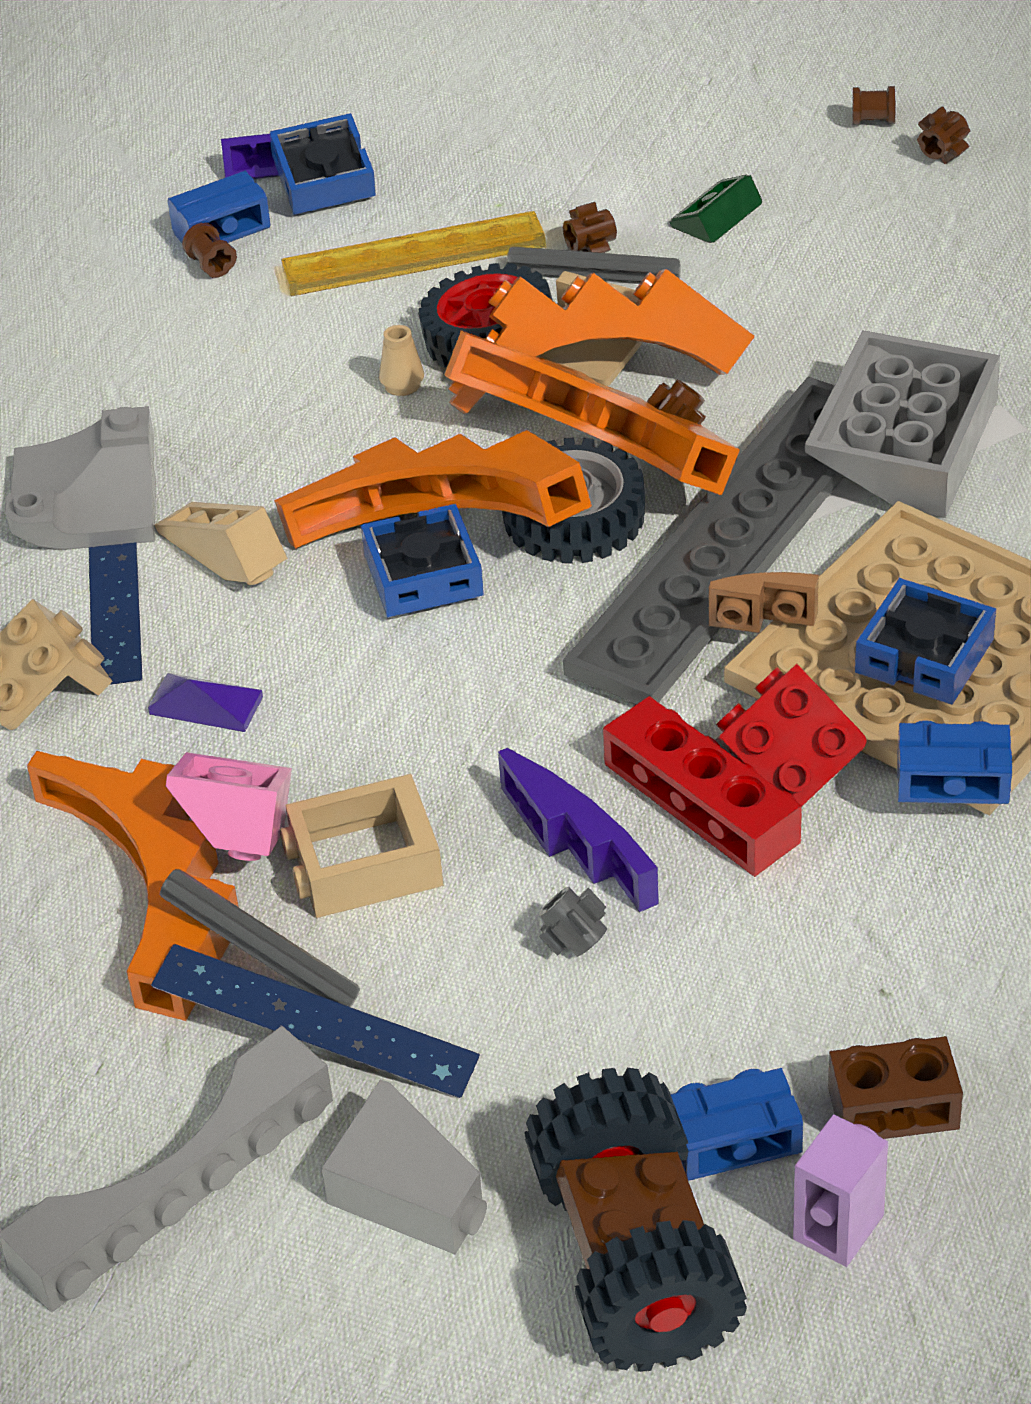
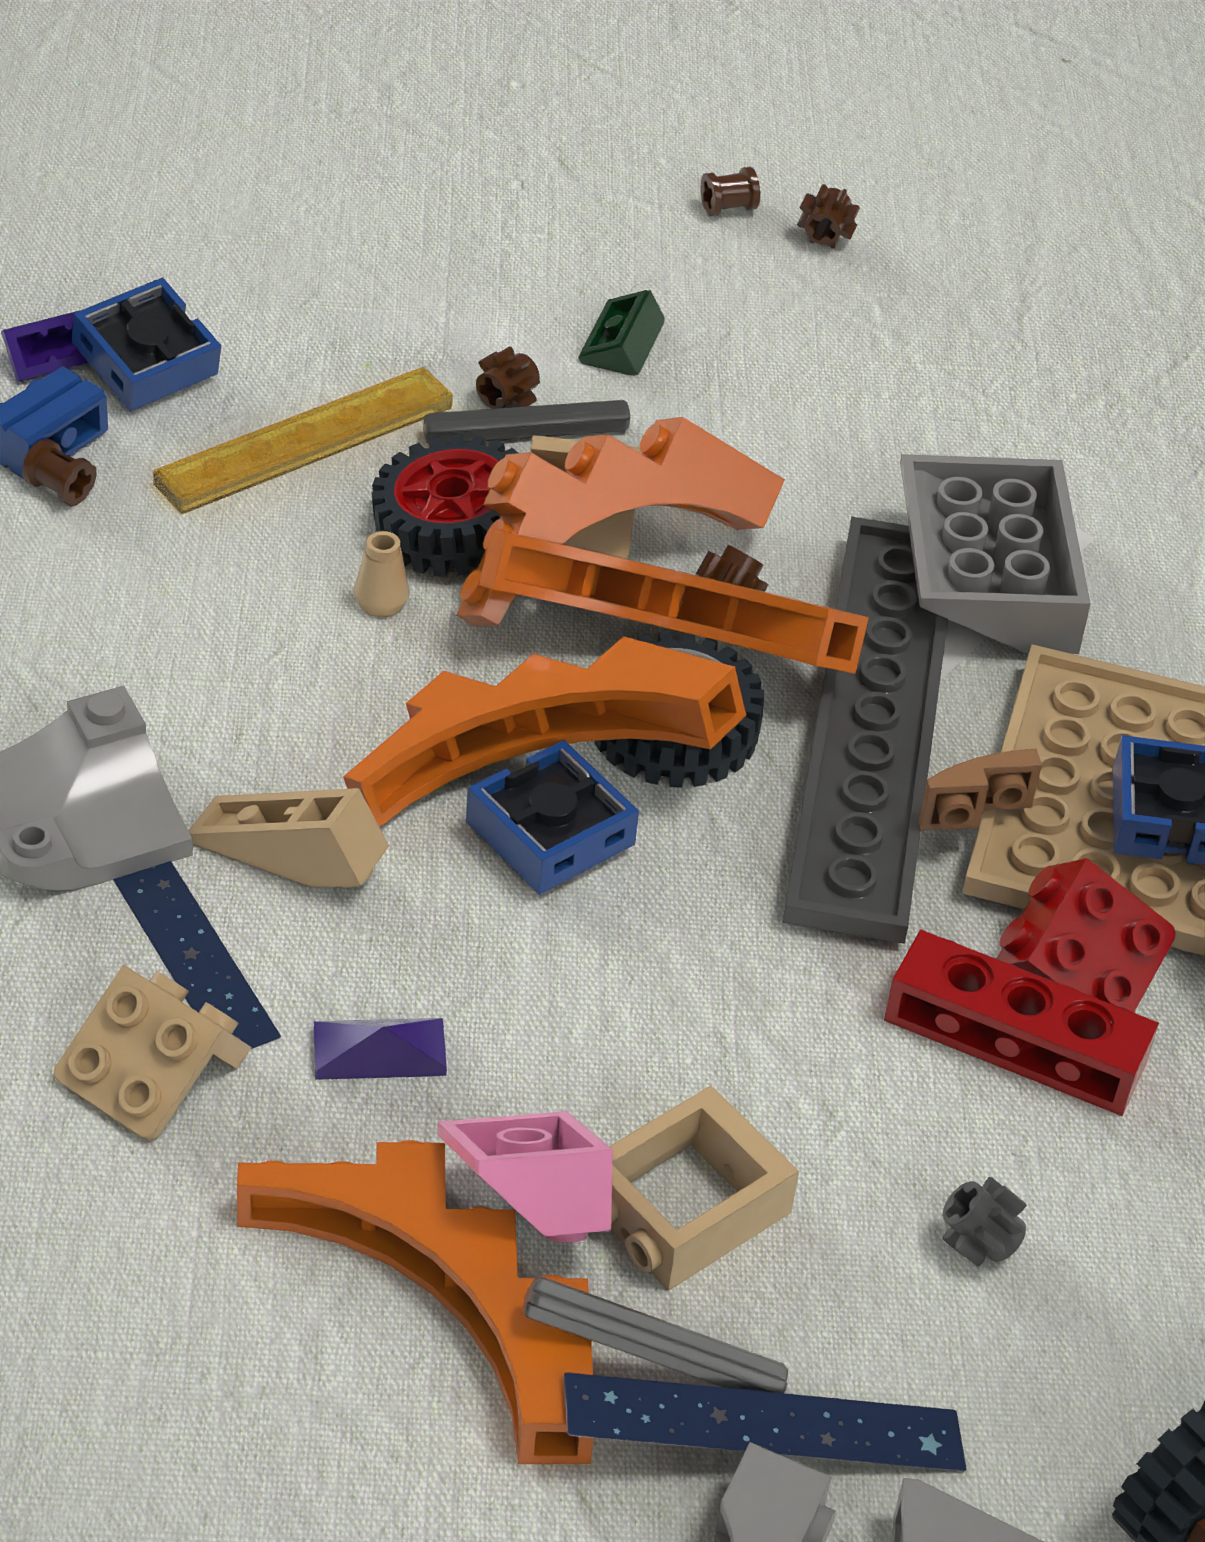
camera: 30 degrees left, 0 degrees up
(571, 820) = (900, 1096): dark purple slope -> none

